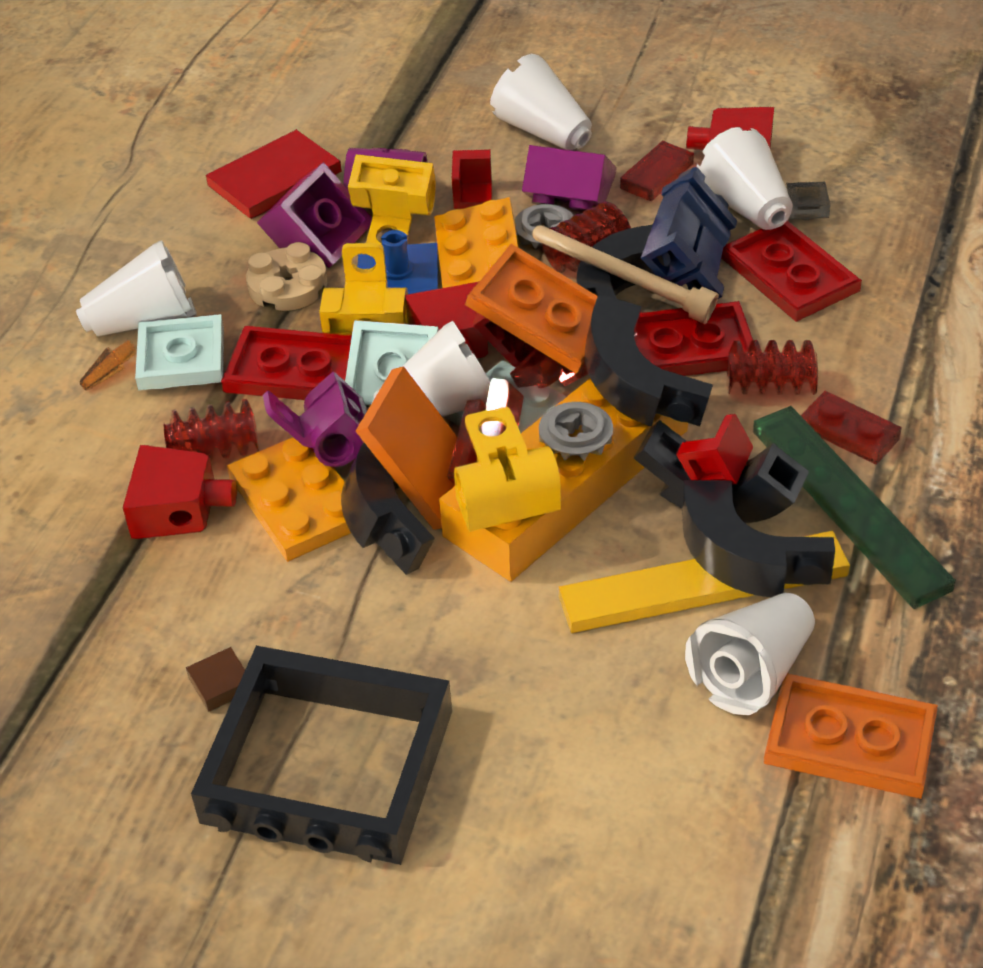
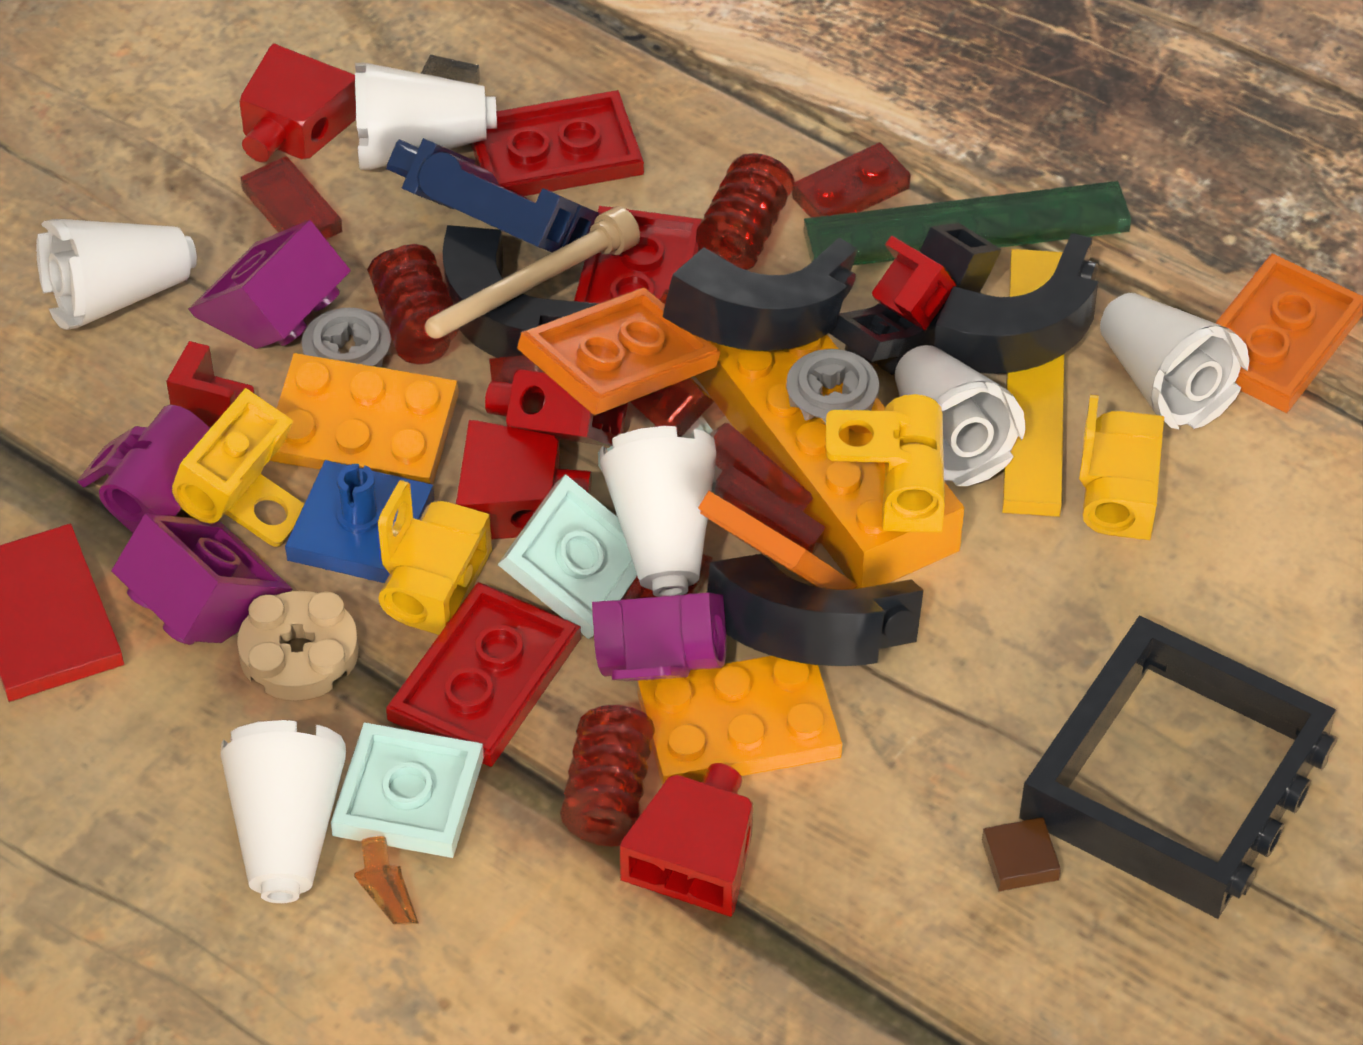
camera: 75 degrees left, 5 degrees up
(614, 524) = (978, 413): none -> white cone
(616, 646) = (1121, 471): none -> yellow piece

